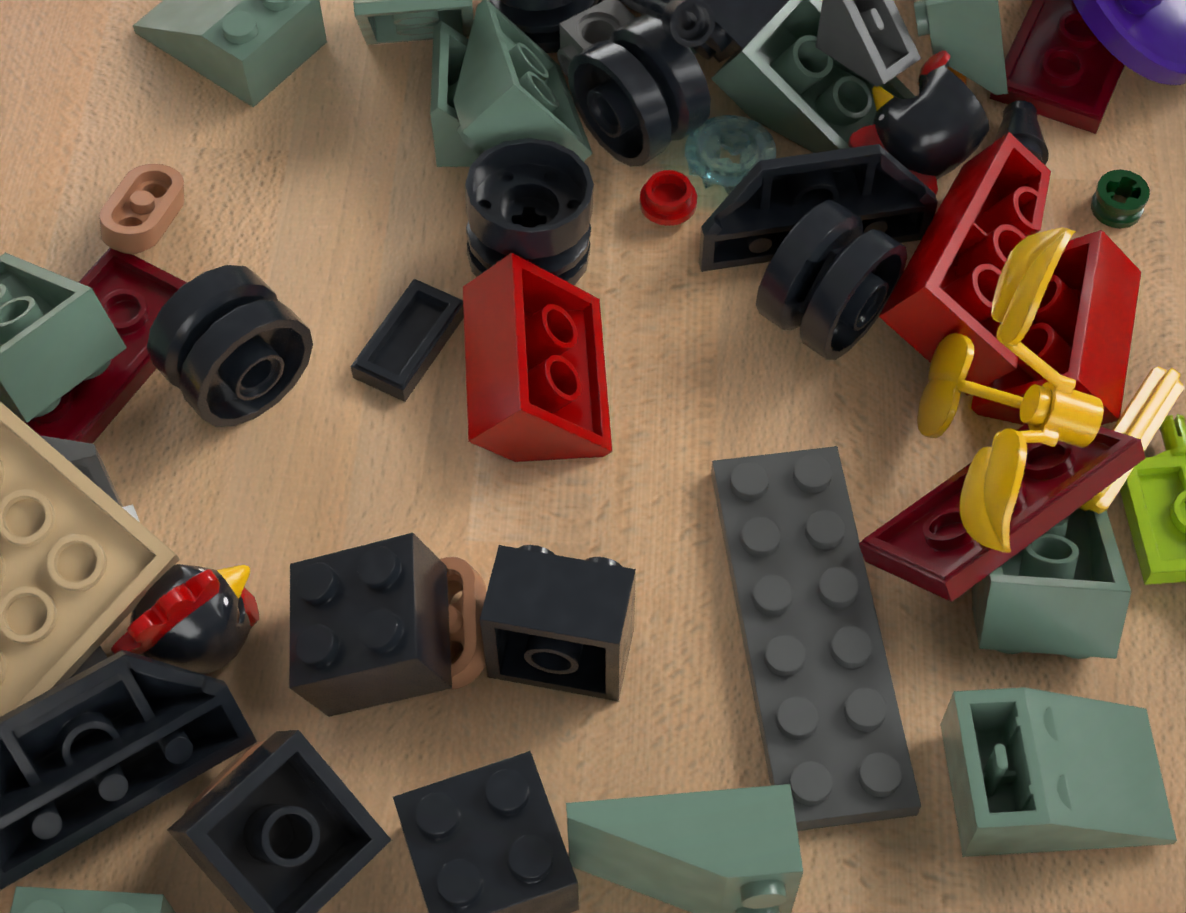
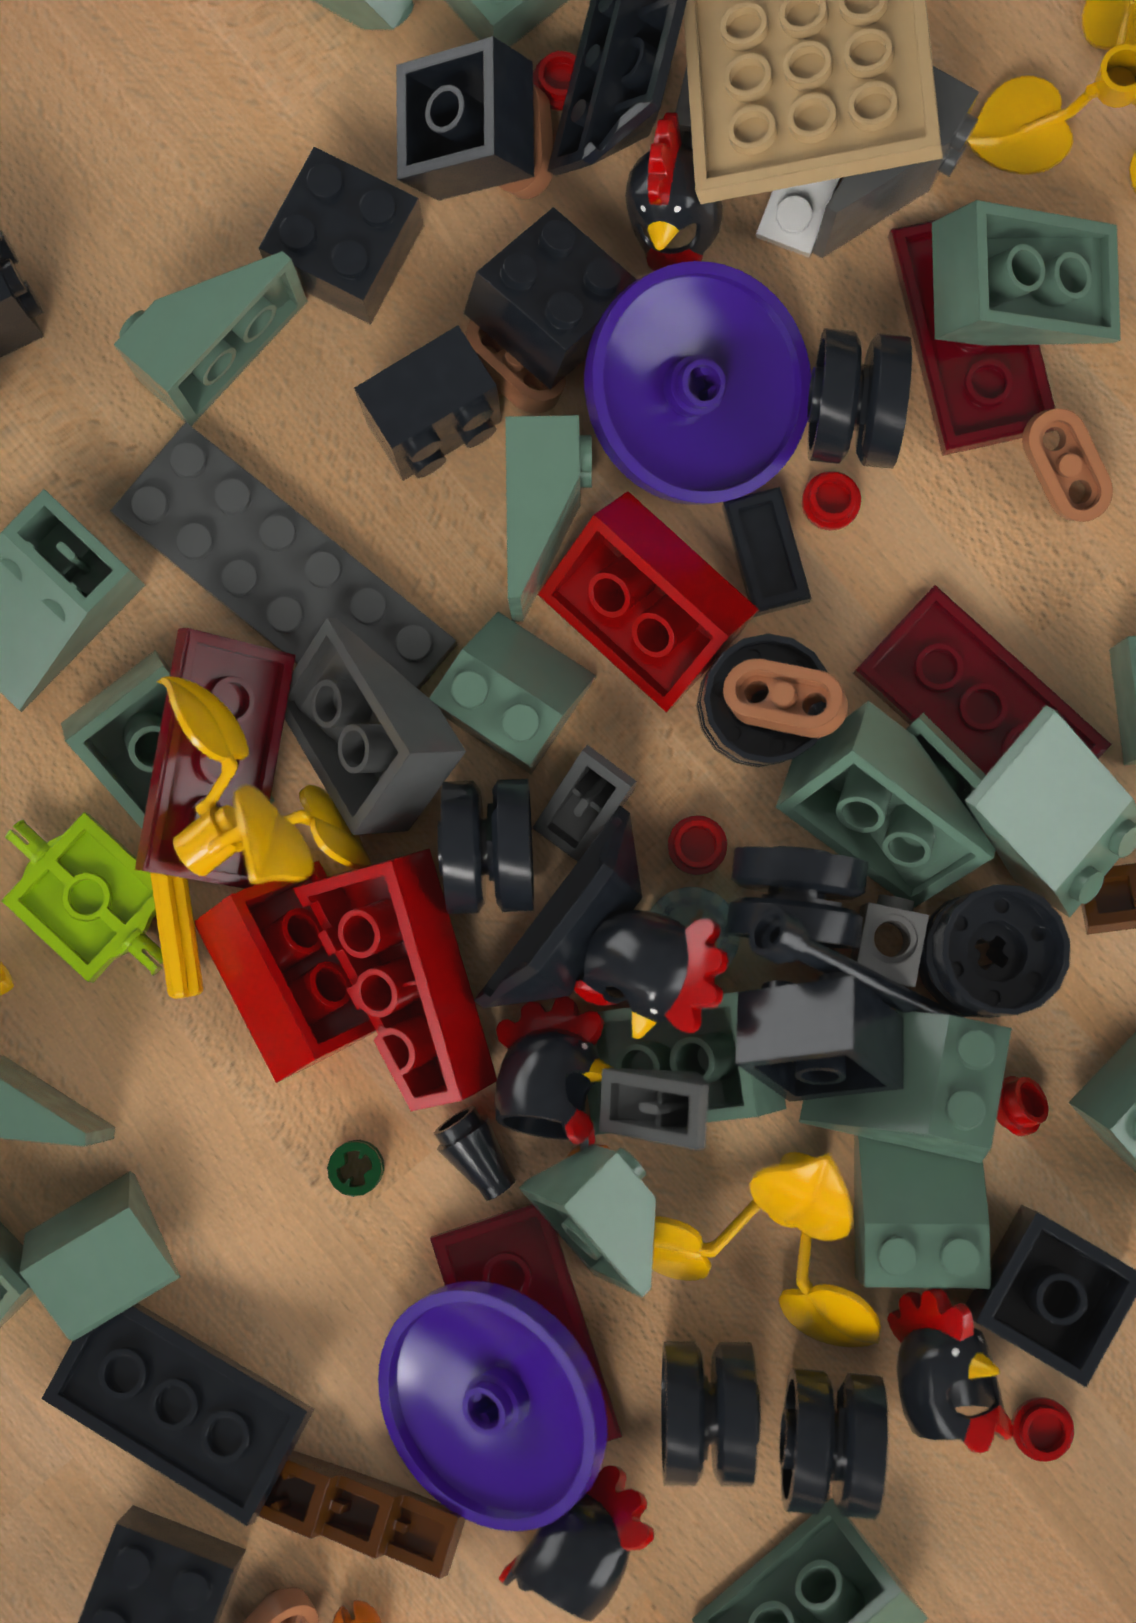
camera: 140 degrees right, 25 degrees up
(146, 837) = (554, 75): none -> red plate
(330, 327) = (831, 500): none -> red plate
(330, 464) = (697, 383): none -> dark purple dish
(377, 137) = (963, 682): none -> dark red tile
(521, 169) = (789, 697): none -> nougat plate
(554, 467) = (543, 484): none -> sand green slope
(706, 387) = (511, 691): none -> sand green slope
(716, 274) = (584, 803): none -> dark grey slope
(782, 97) = (654, 966): none -> black piece
(853, 424) = (368, 733): none -> dark grey slope

